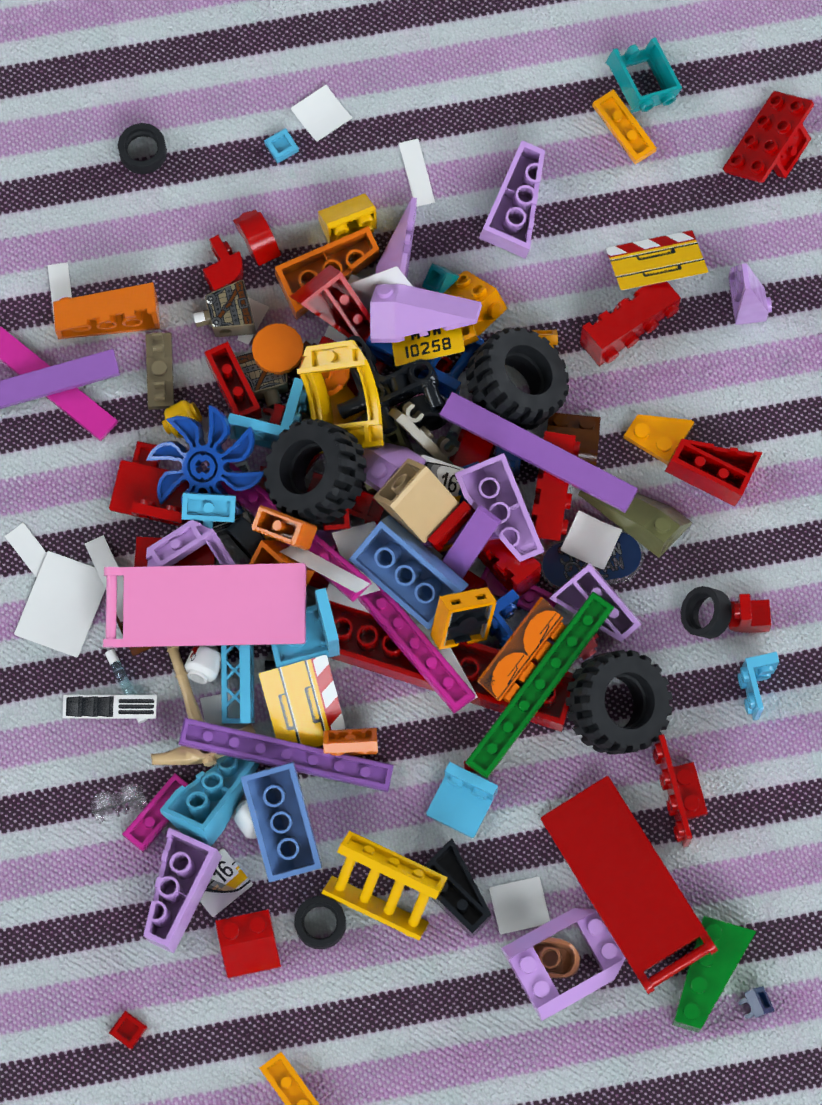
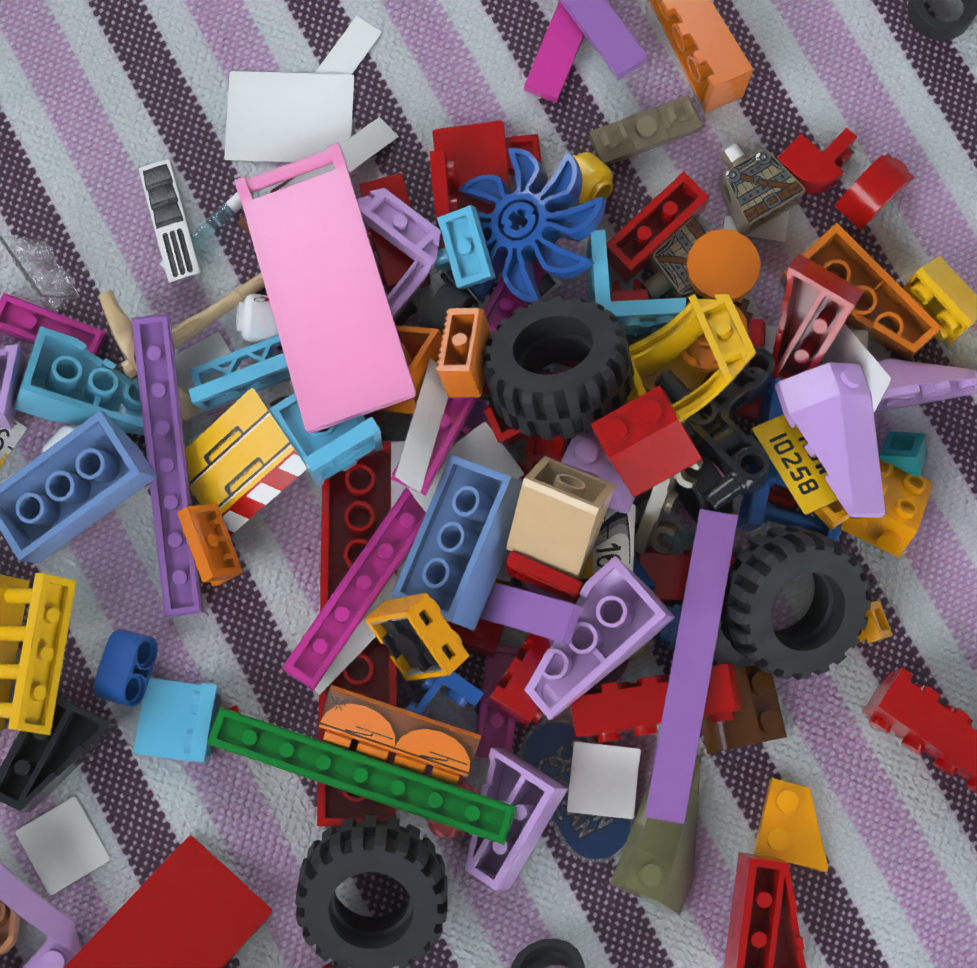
camera: 65 degrees right, 5 degrees up
(388, 428) = (646, 441): none -> red slope
(415, 824) = (125, 667): none -> blue beam

